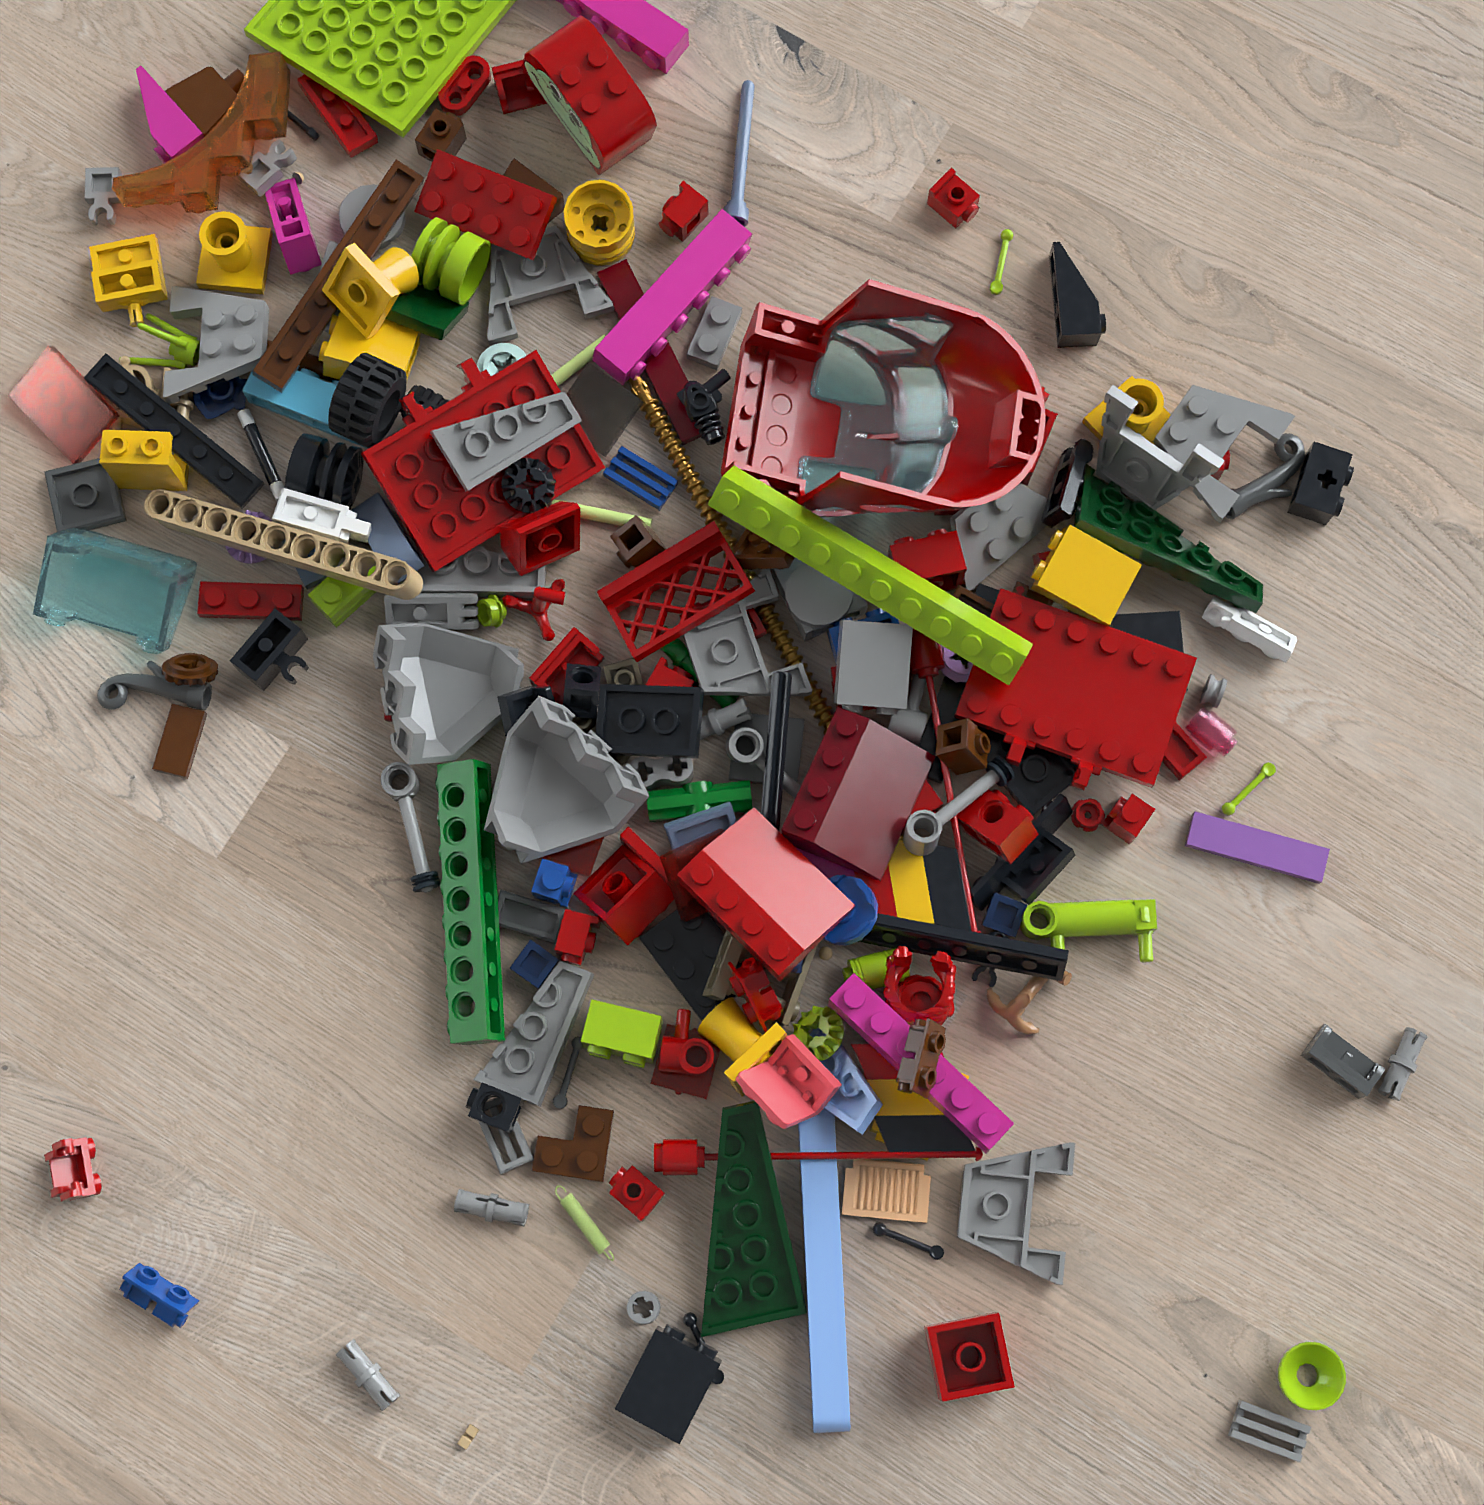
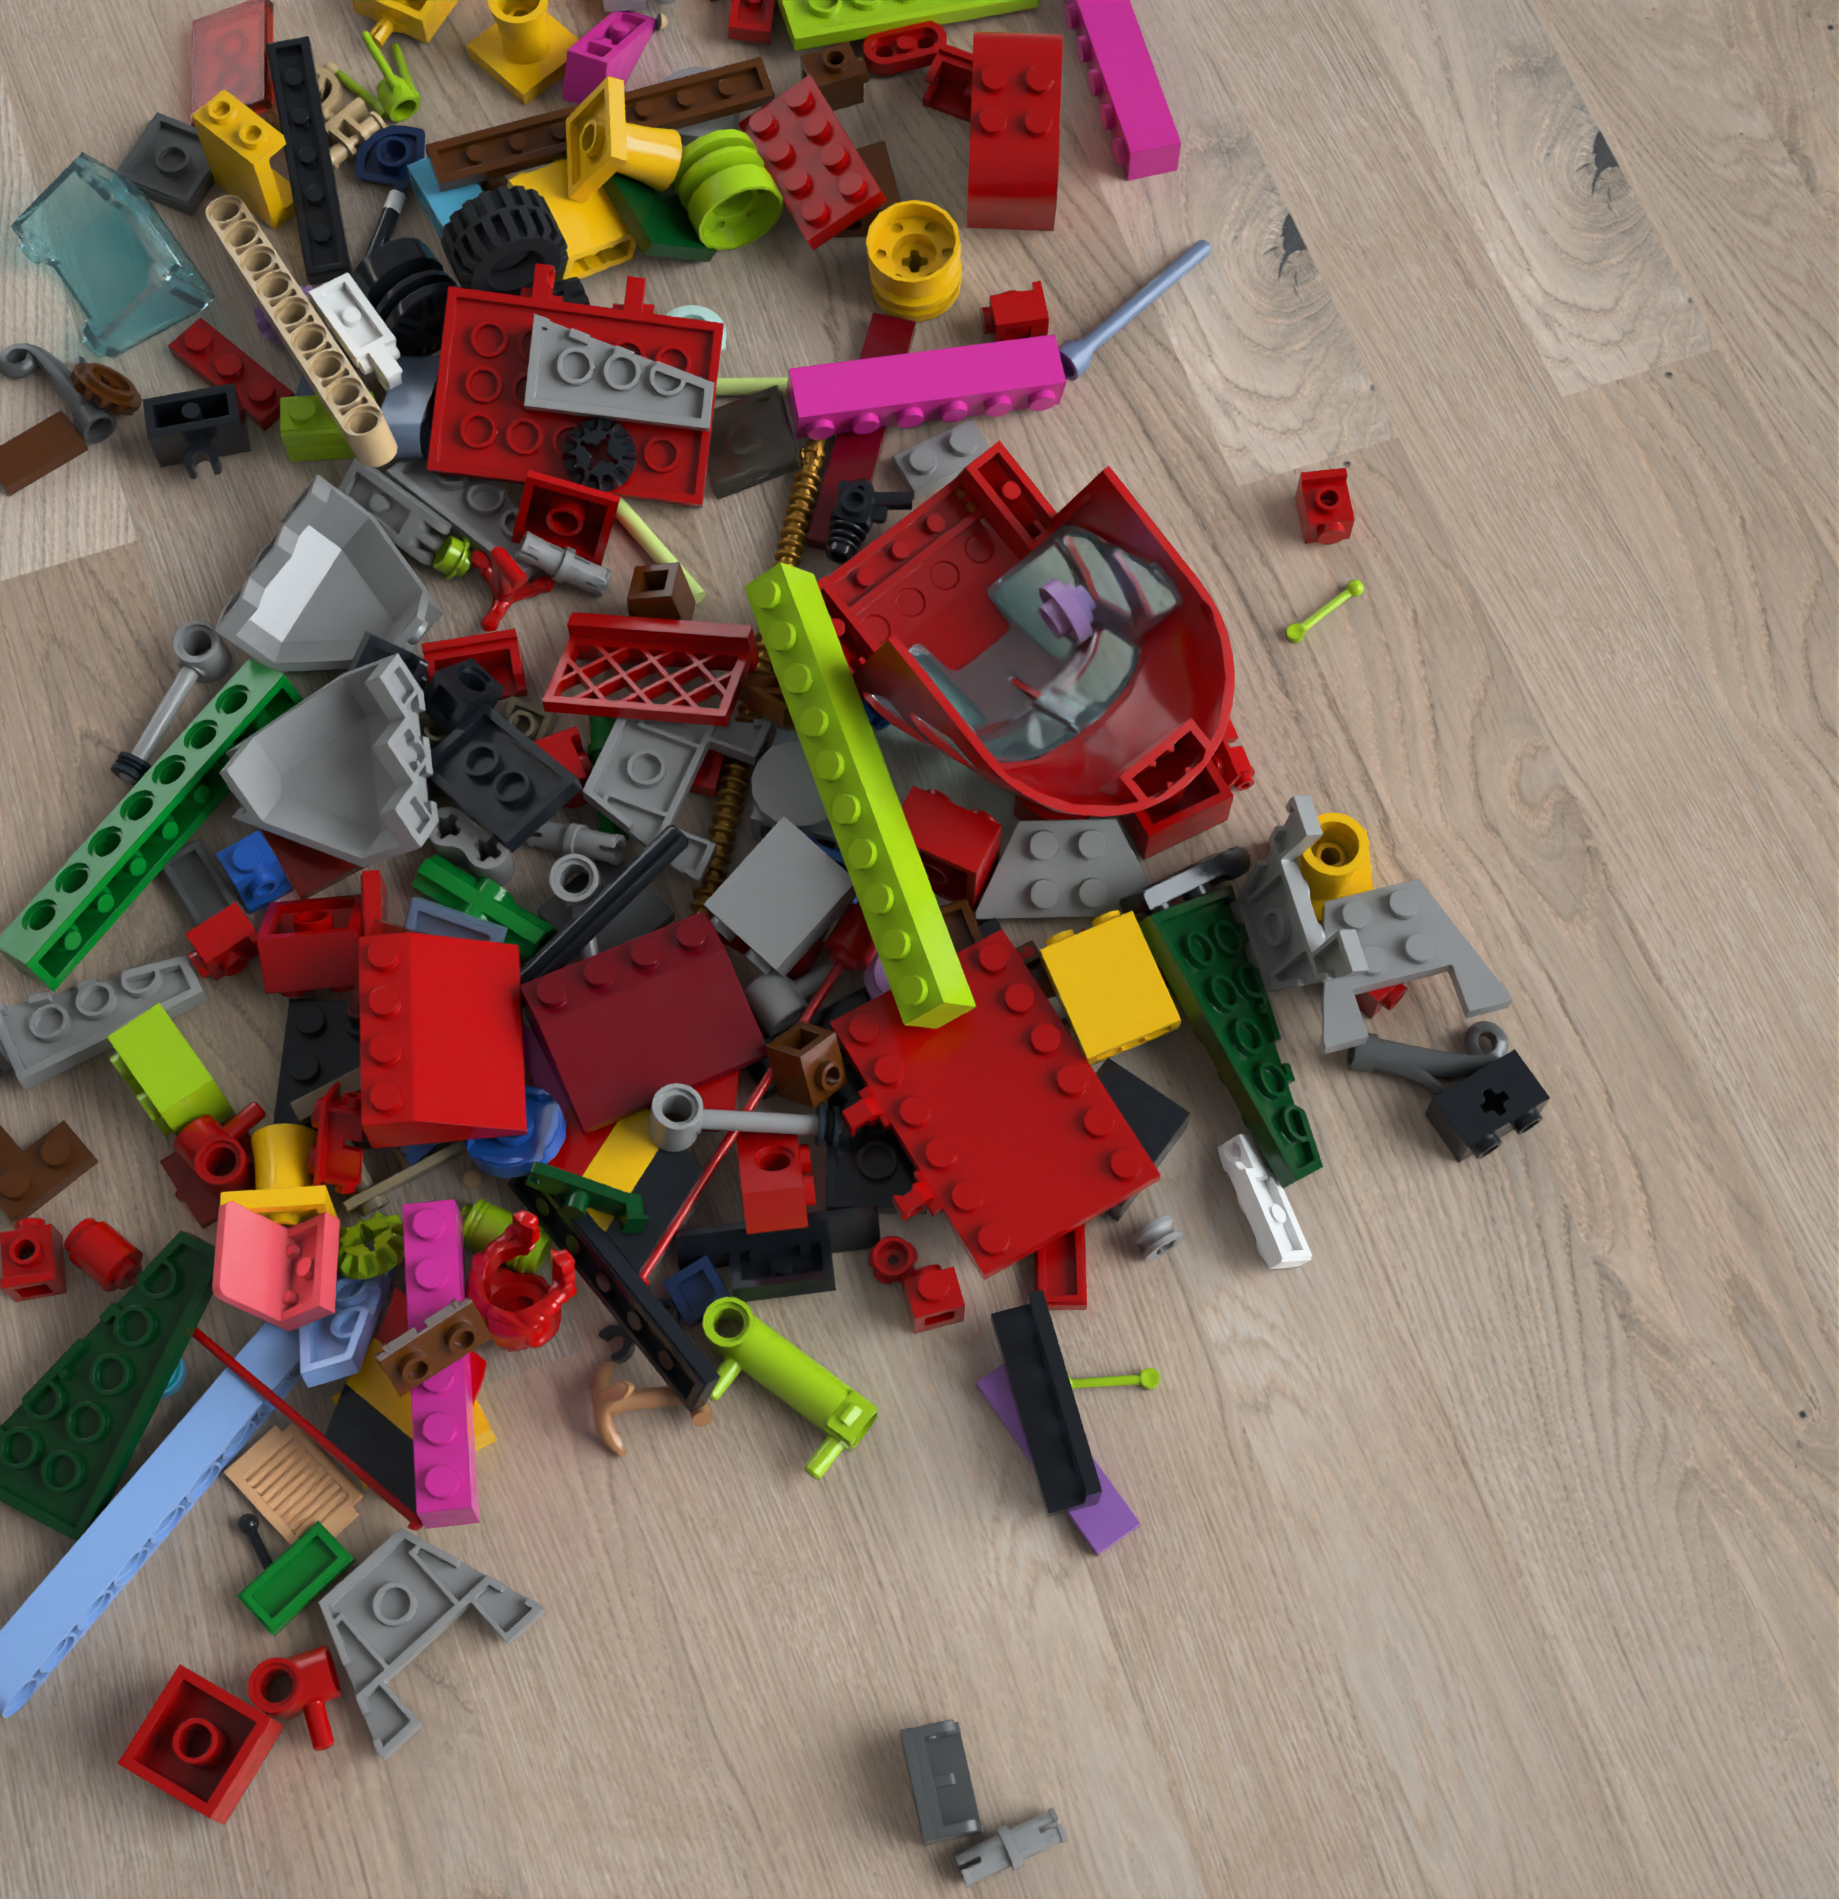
camera: 40 degrees right, 10 degrees down
(230, 340) = (446, 106): light grey wing -> none
(522, 280) = (826, 277): light grey wing -> none
(534, 964) = (157, 937): dark blue plate -> none
(560, 1101) = (54, 1103): dark grey hinge -> none
(562, 566) = (563, 564): none -> light grey pin
(617, 462) = (722, 512): blue tile -> none
(876, 374) = (1067, 610): none -> lavender plate
(912, 913) = (584, 1193): none -> dark green piece
(933, 1235) = (296, 1578): none -> green tile
(994, 1280) = (314, 1684): none -> red piece
(1075, 305) = (1358, 718): black slope -> none
(1212, 733) = (1115, 1282): clear pink brick -> none
(1237, 826) = (1046, 1406): none -> black fence

